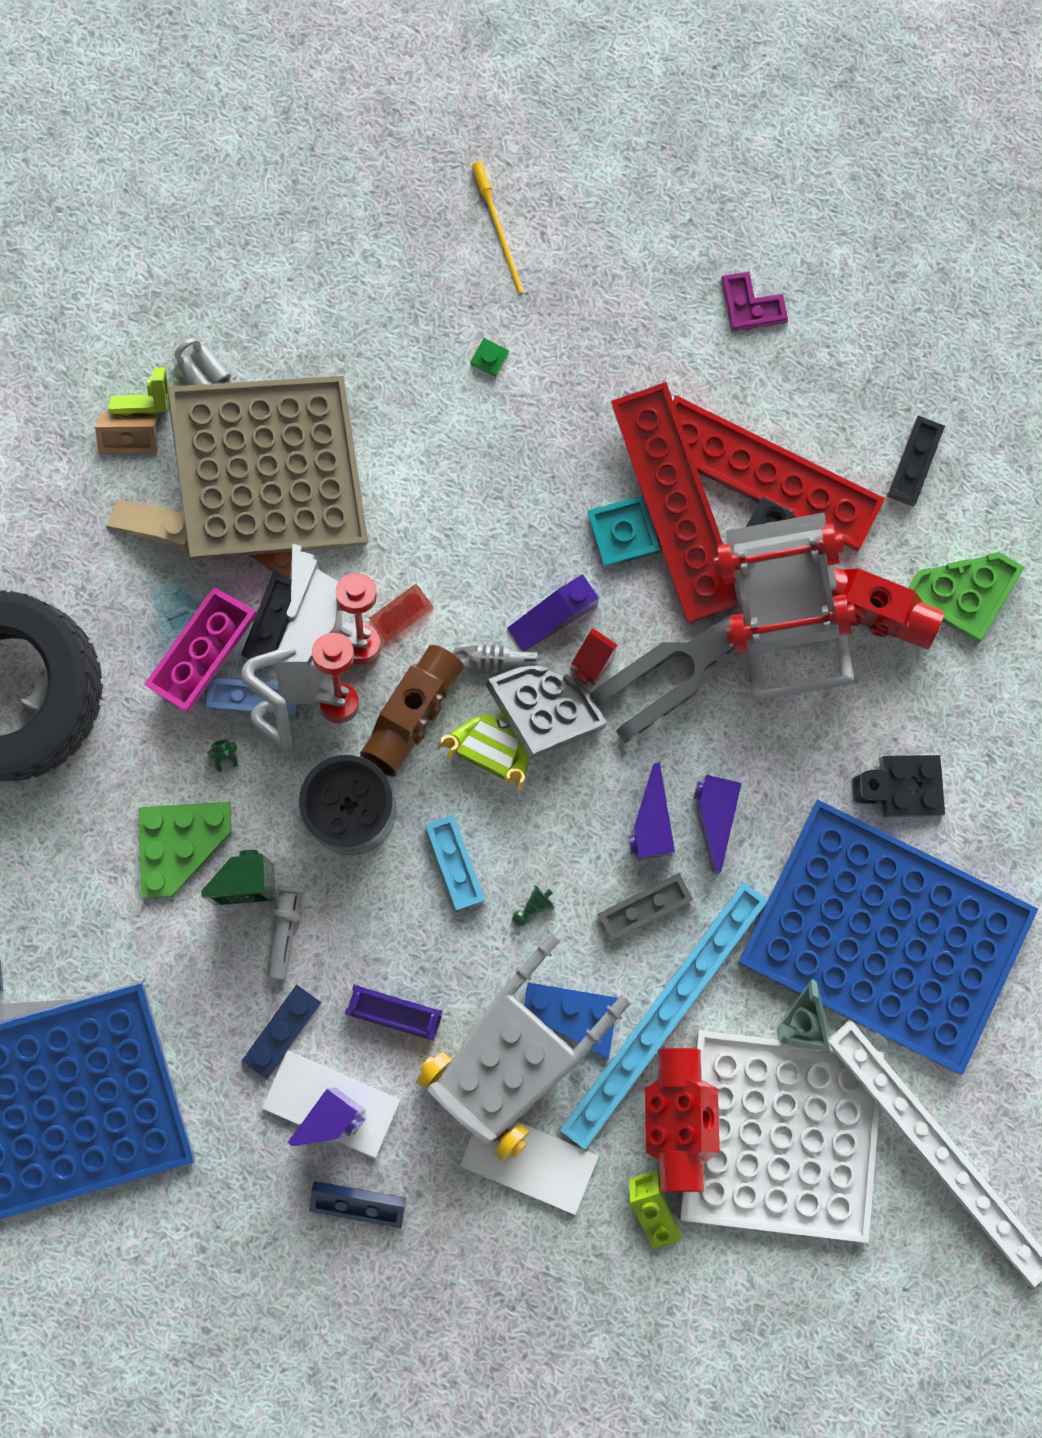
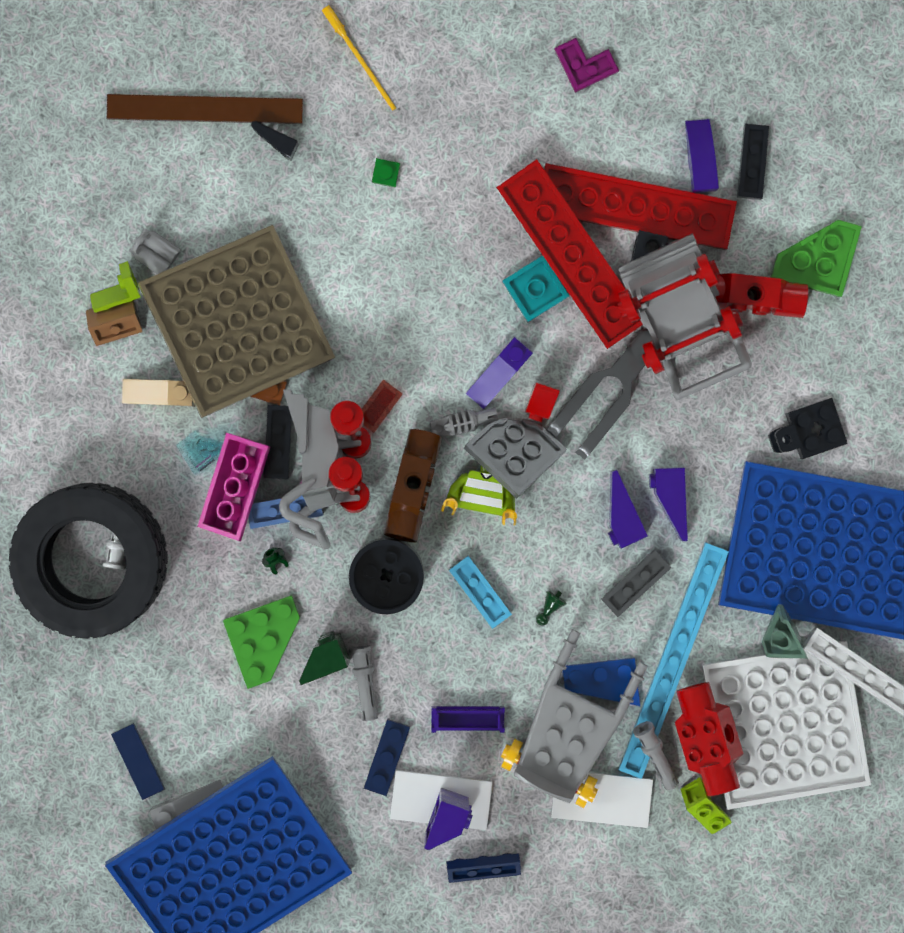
camera: 25 degrees left, 10 degrees up
(308, 233) = (204, 109): none -> reddish brown tile
(382, 291) = (282, 143): none -> black slope
(609, 1112) = (653, 747): none -> light grey pin
(857, 439) = (701, 156): none -> dark purple slope

